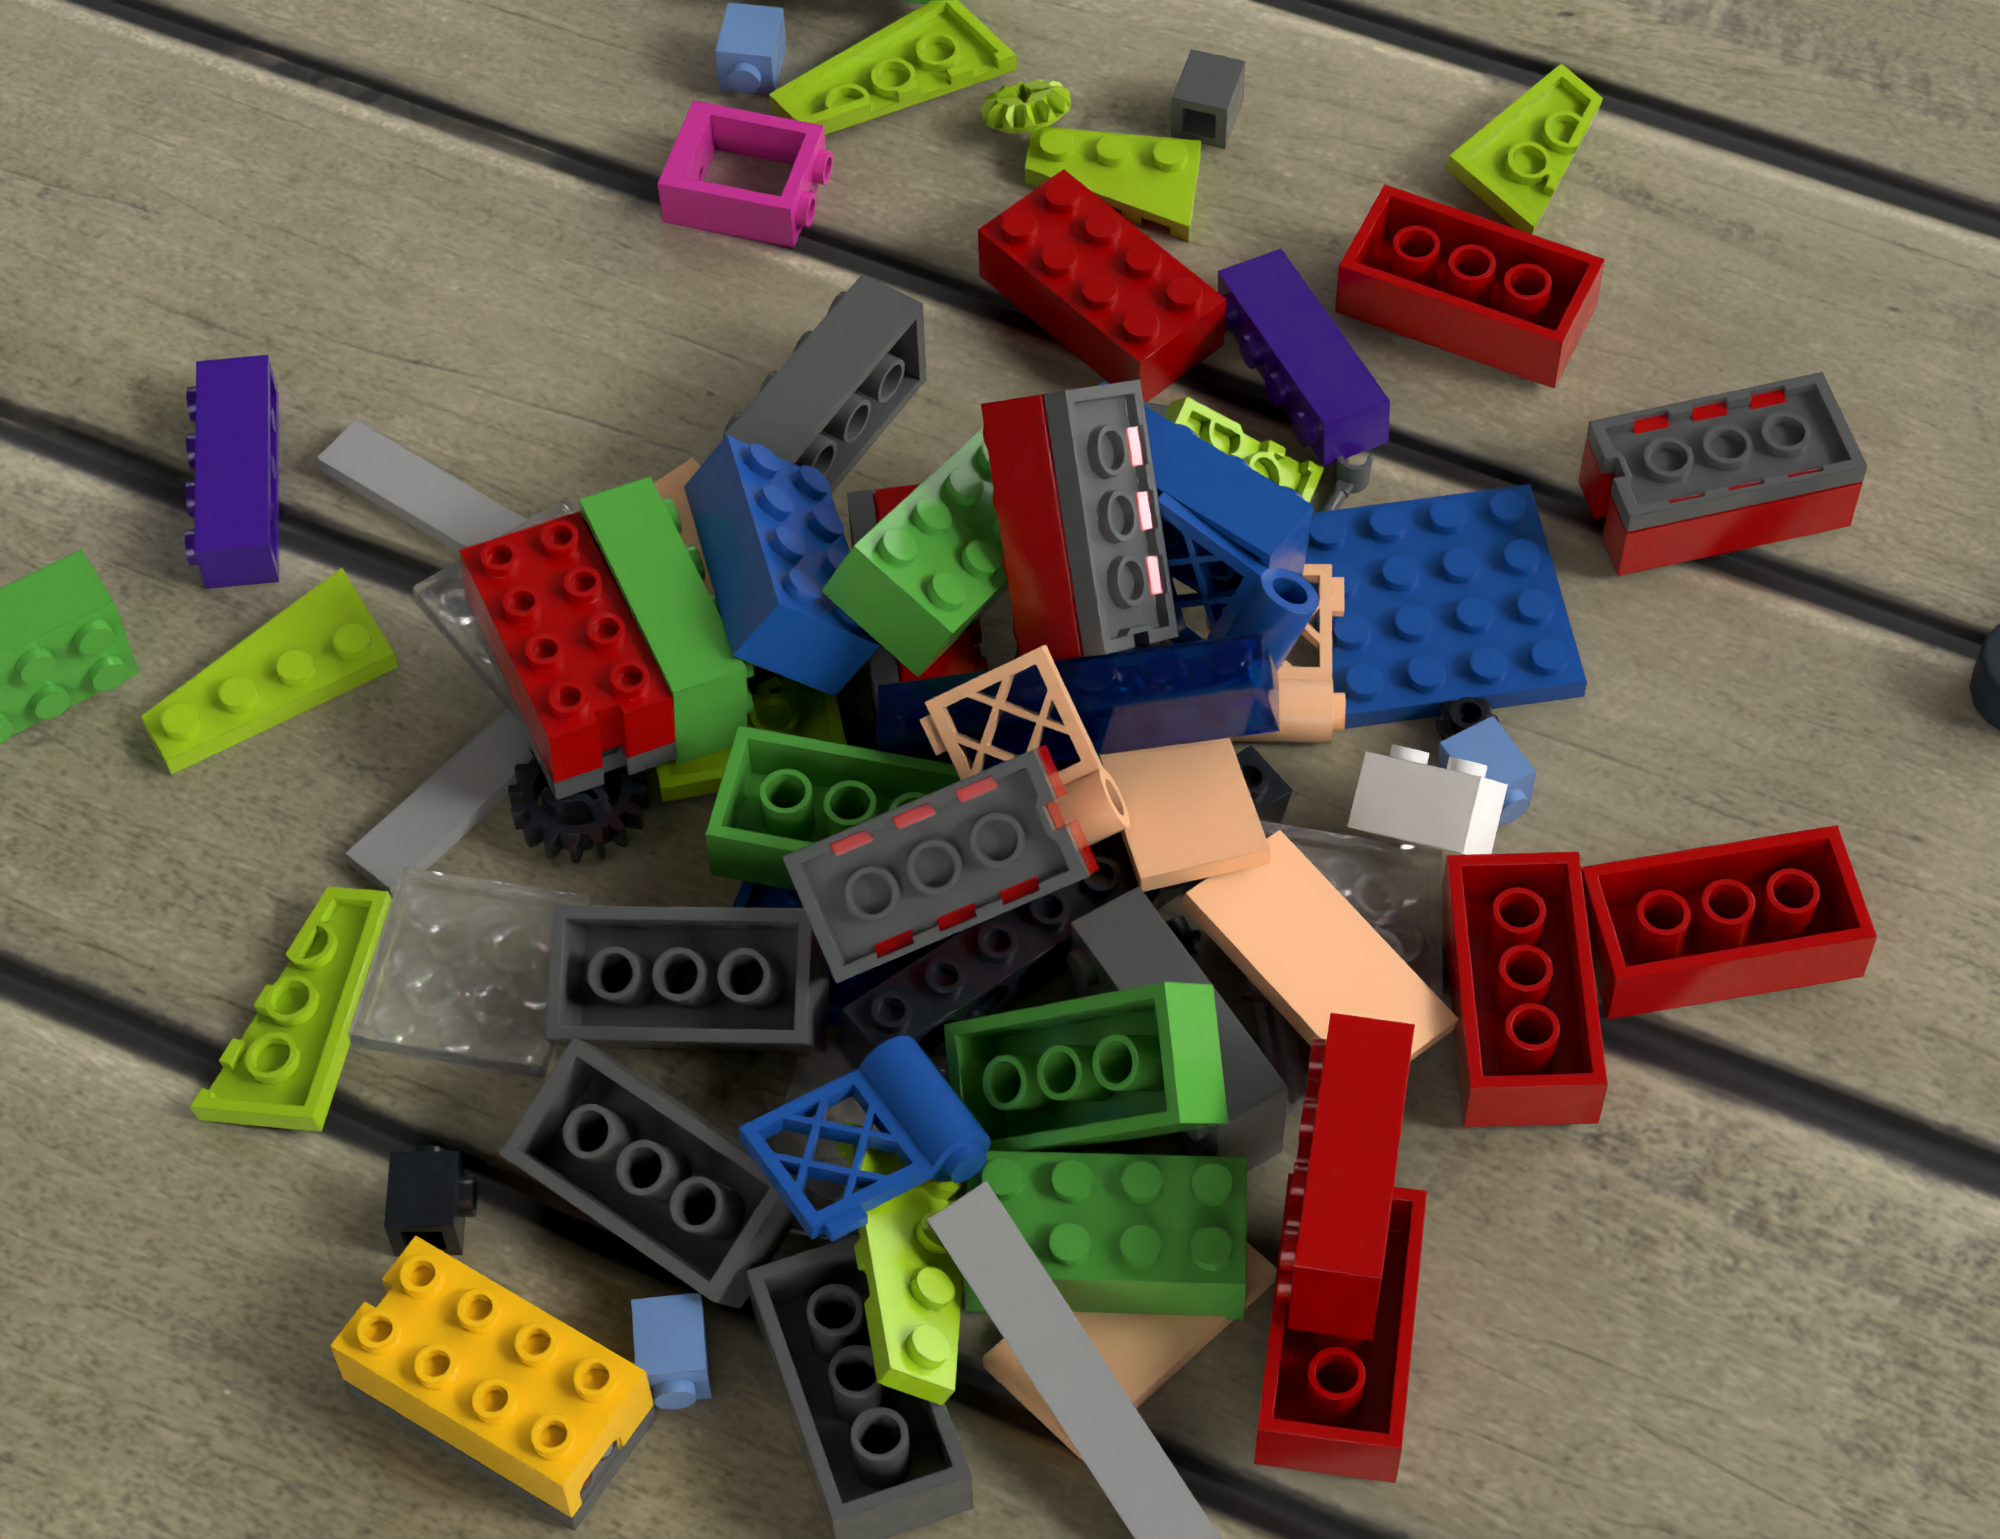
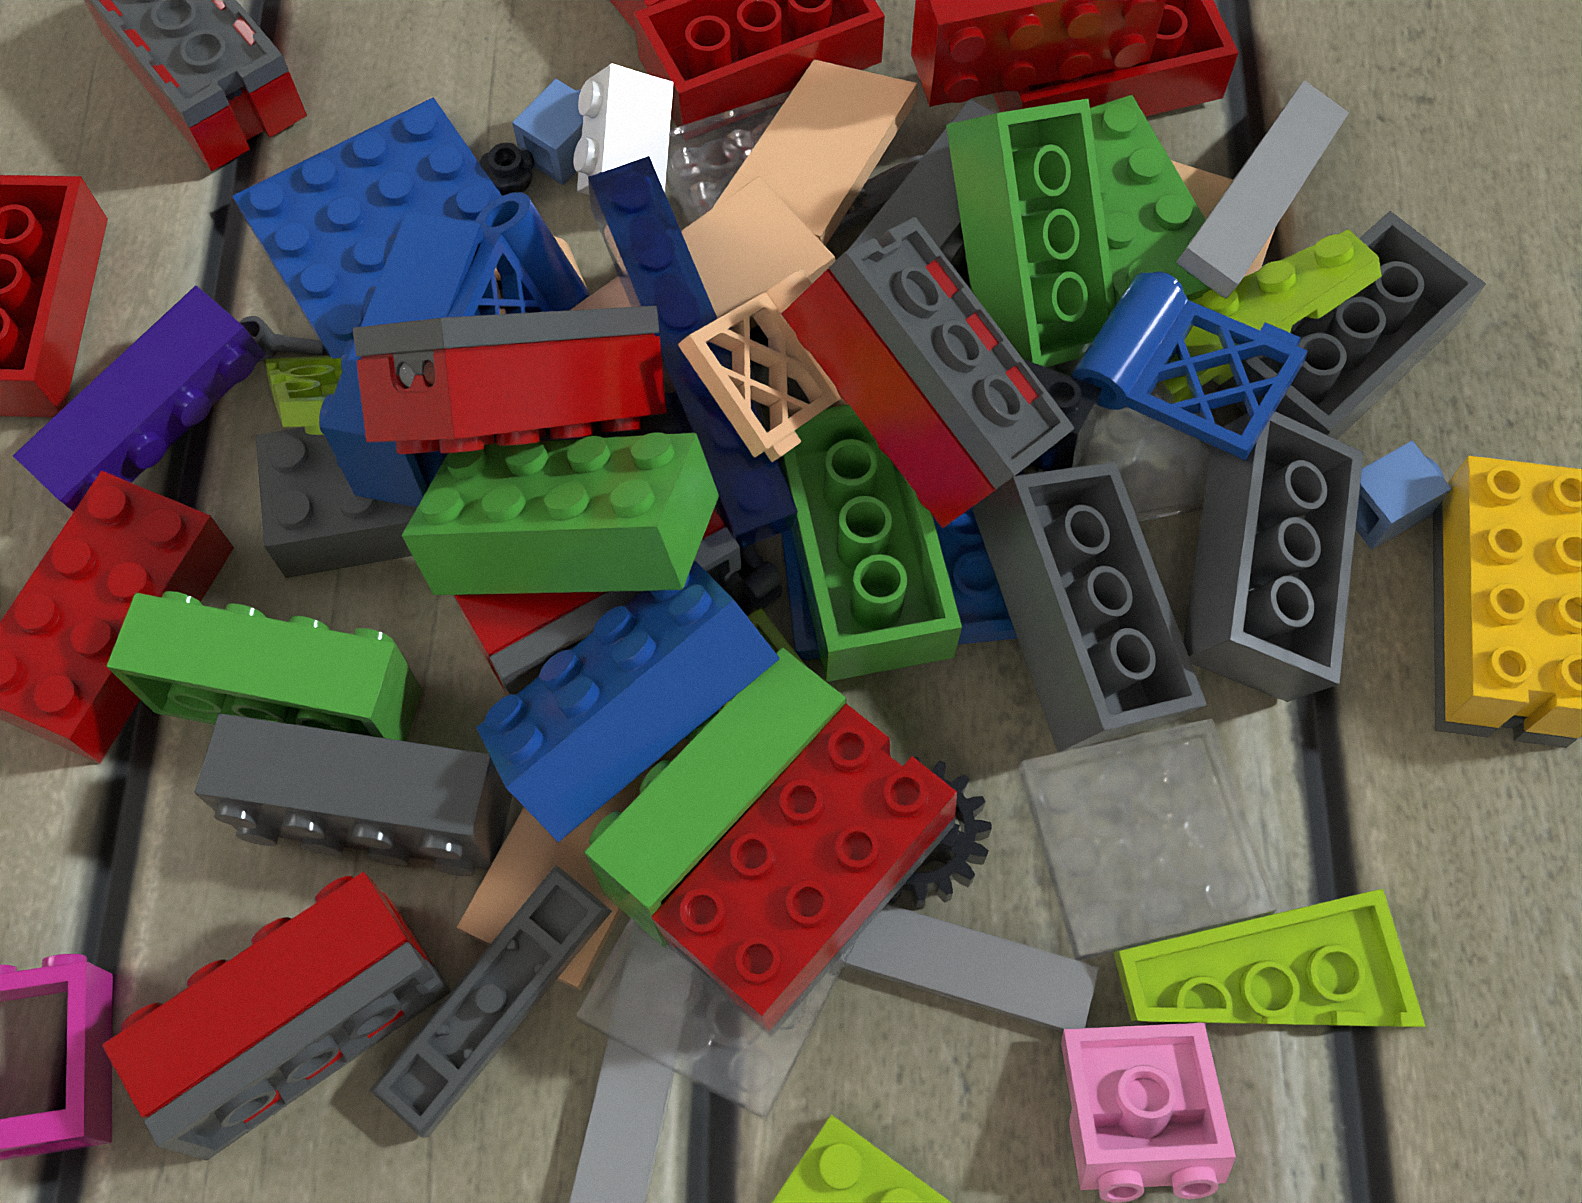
camera: 115 degrees left, 10 degrees up
(260, 859) = (1146, 1111): none -> bright pink plate
(428, 1199) = (1388, 750): black brick -> none
(605, 436) = (490, 1002): none -> dark grey plate
(677, 314) = (274, 1018): none -> piece
(975, 352) = (239, 663): none -> bright green brick

